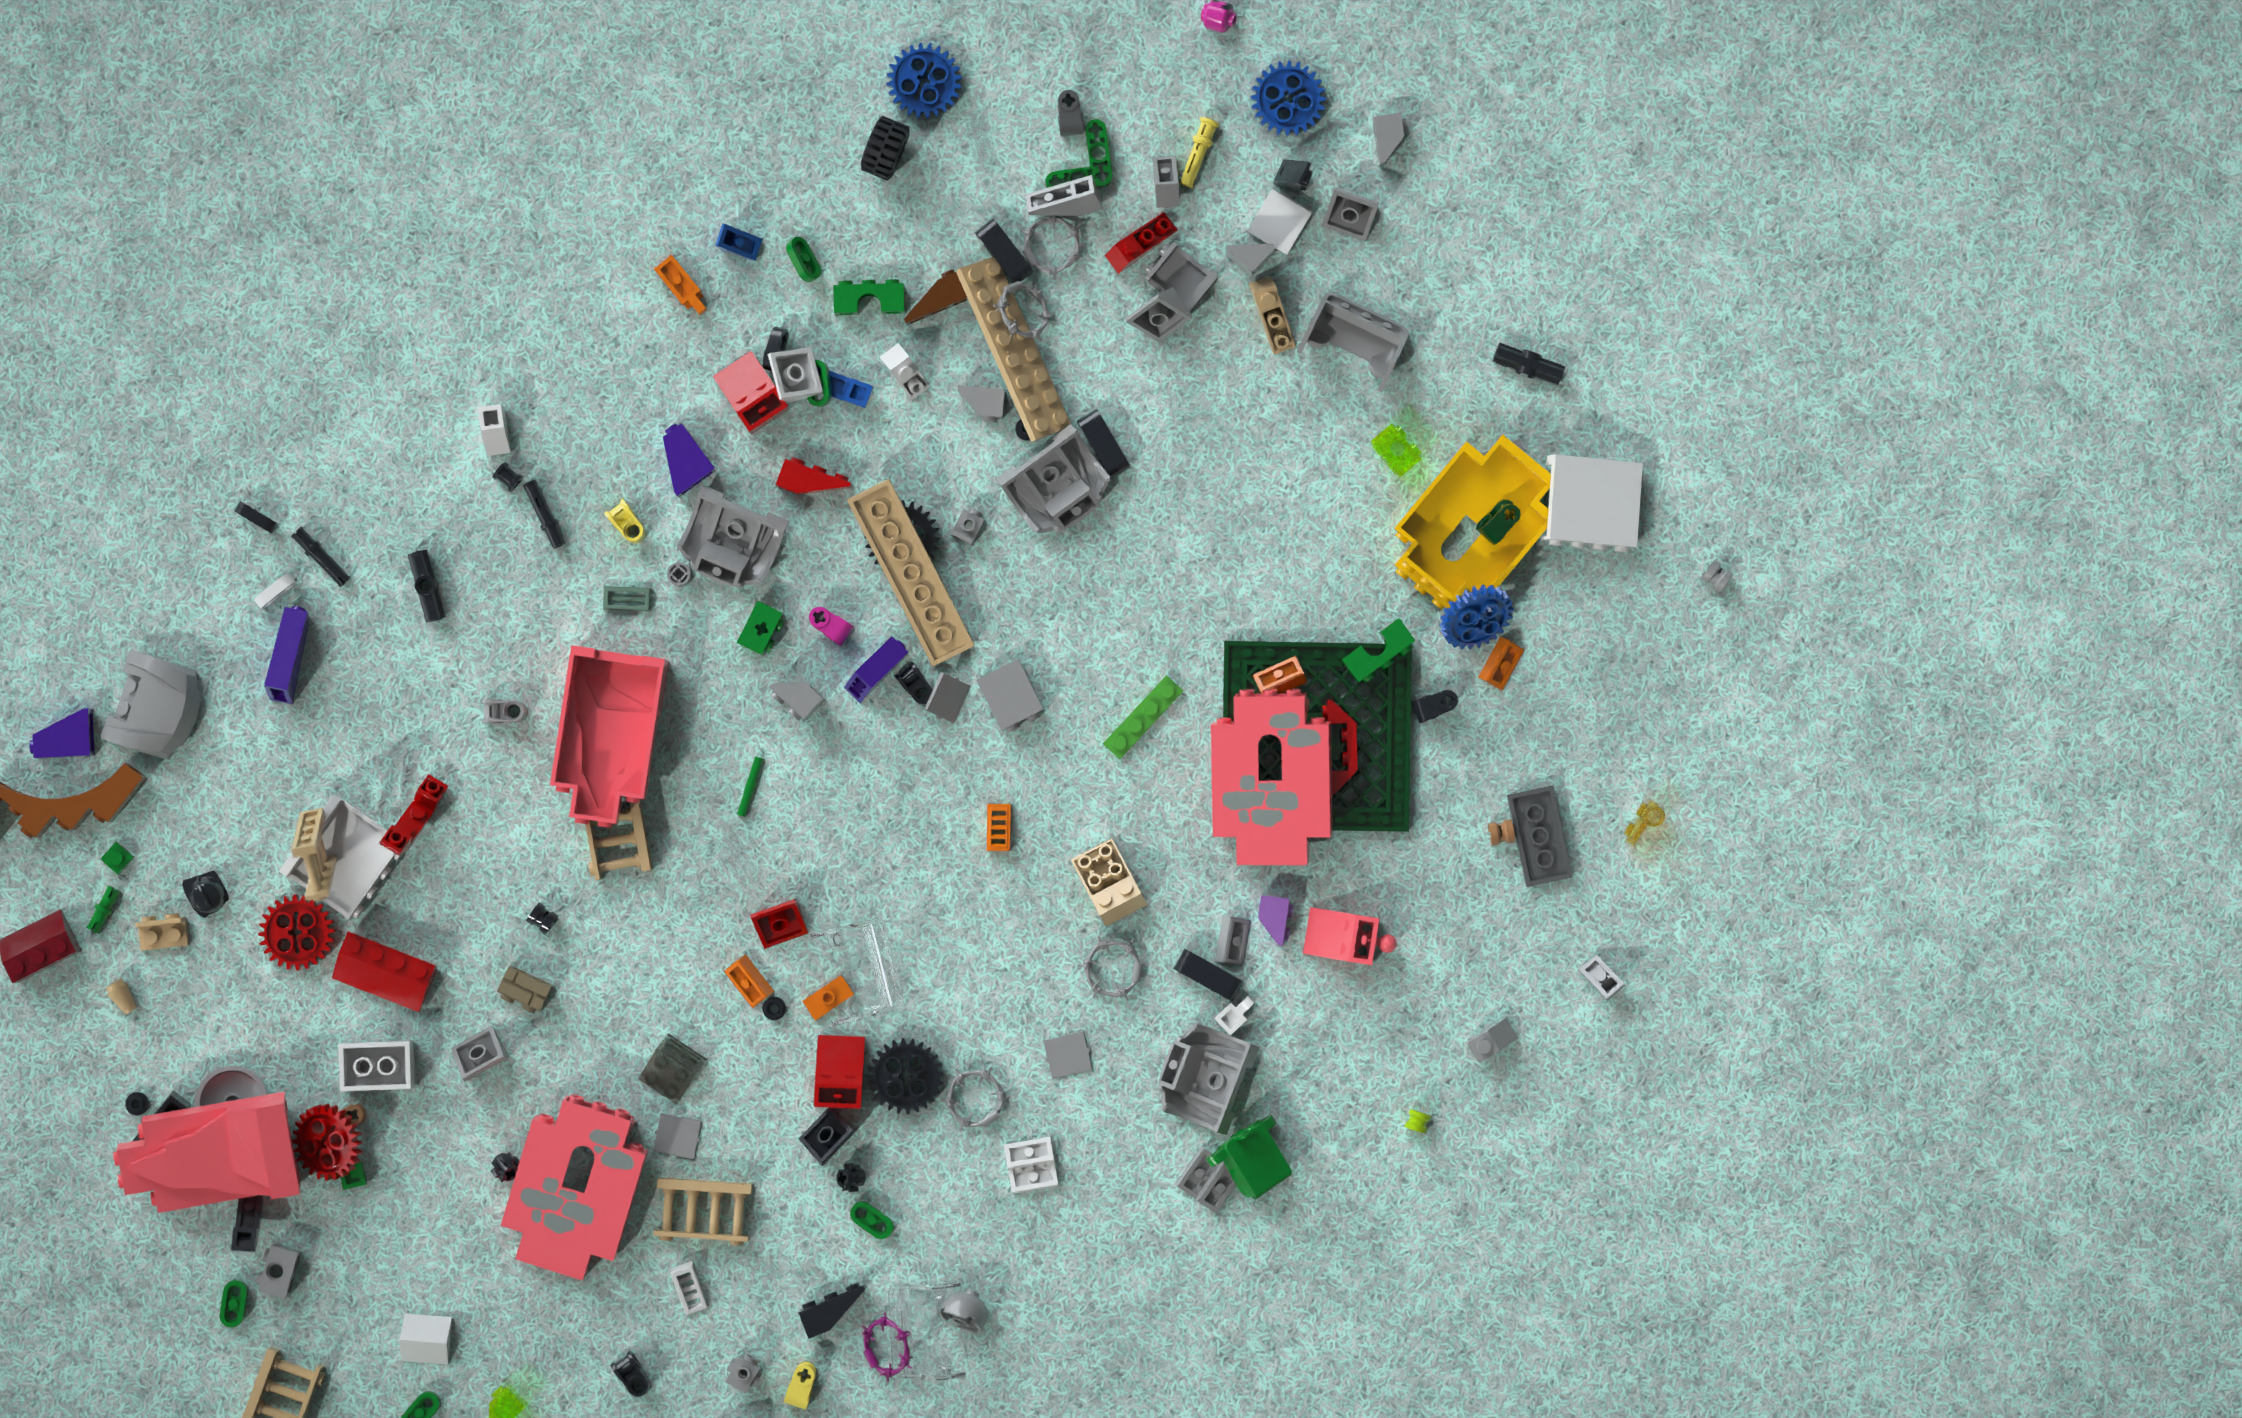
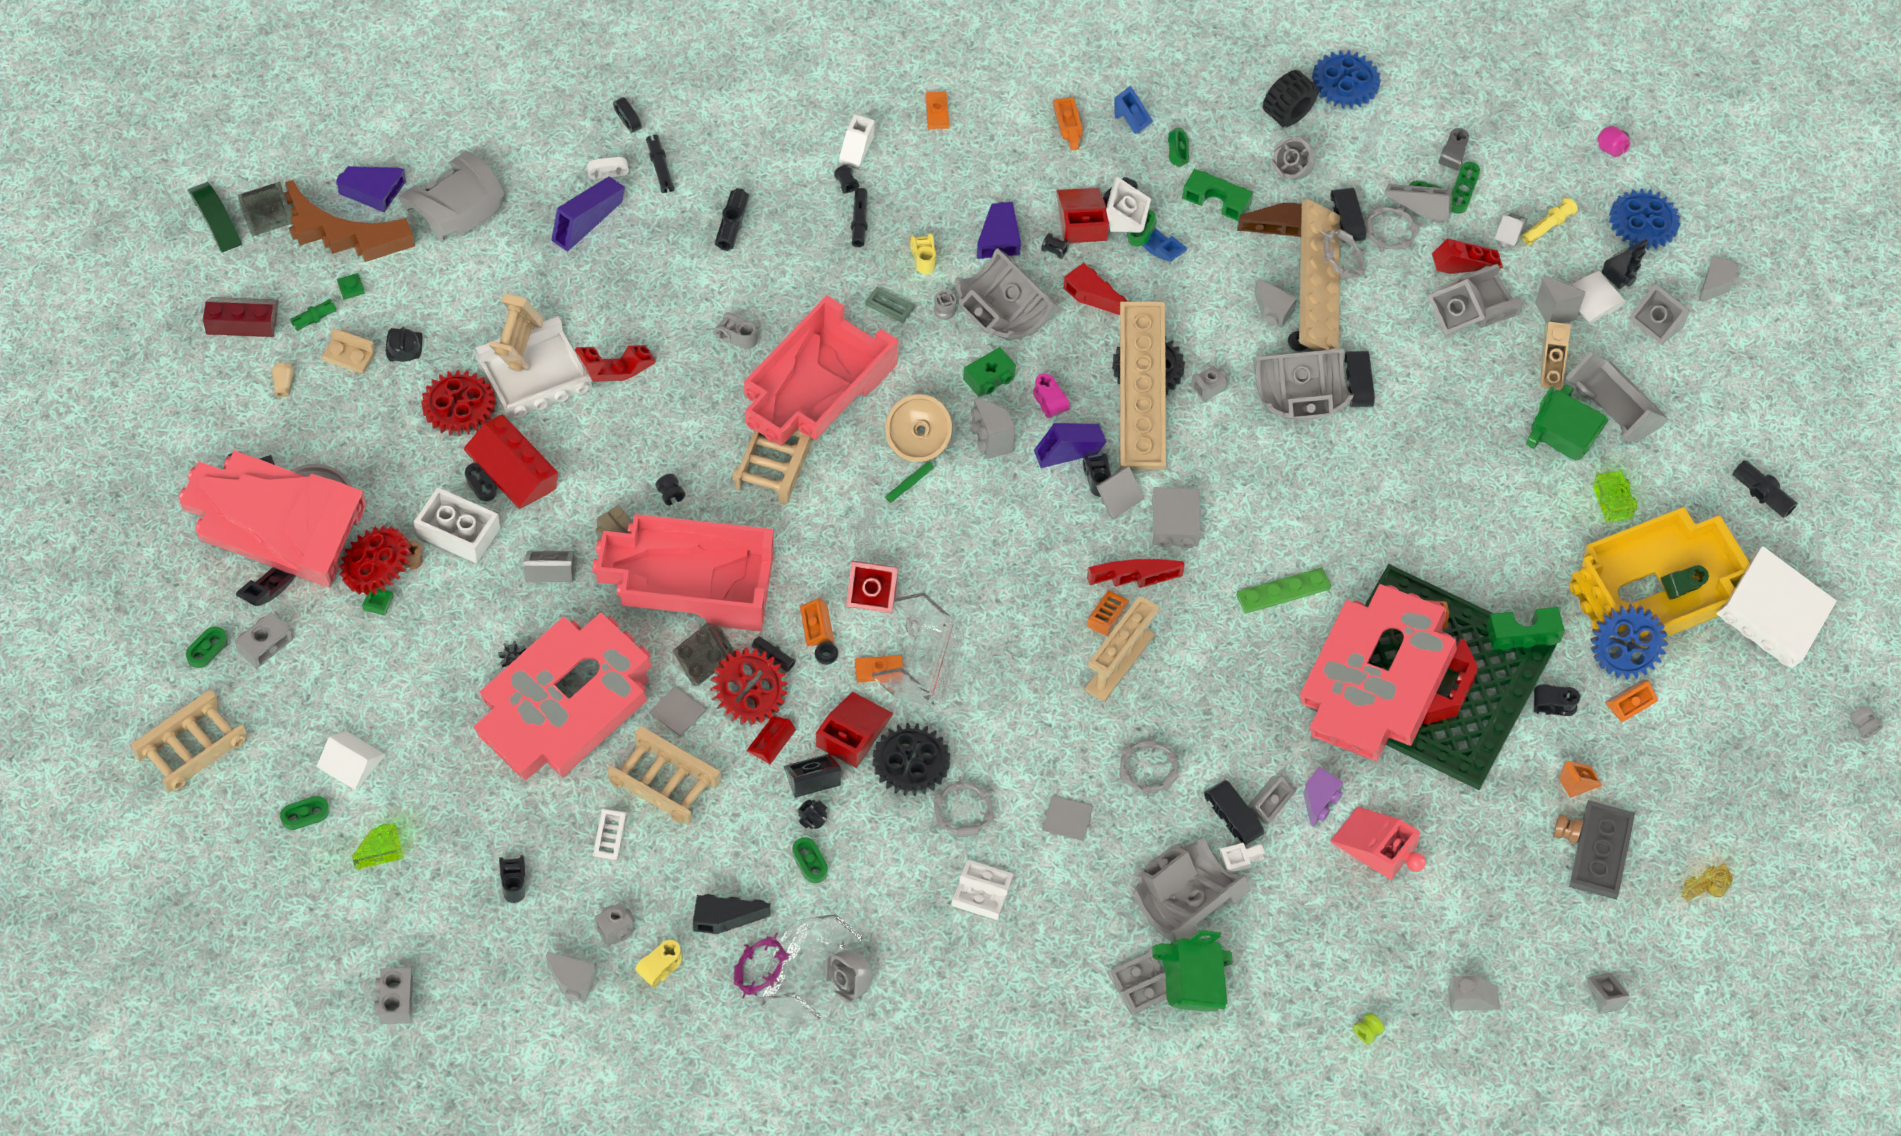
camera: 30 degrees right, 30 degrees down
(364, 1007) = (476, 485): none -> black beam
(547, 340) = (937, 110): none -> orange plate
(610, 1001) = (690, 568): none -> coral panel
(727, 743) = (907, 418): none -> tan dish
(728, 1035) = (774, 651): none -> black axle
(745, 445) = (1060, 250): none -> black bush
(748, 1087) = (733, 672): none -> red gear
(773, 1119) = (772, 739): none -> red slope
(904, 371) = (1218, 255): white slope -> none
(922, 219) = (1293, 158): none -> light grey cylinder
(1011, 770) = (1143, 571): none -> red slope
(1034, 874) = (1121, 648): none -> tan fence
(1108, 882) = (1183, 699): tan slope -> none
(1320, 398) = (1566, 424): none -> green piece
(1491, 773) = (1578, 778): none -> orange slope

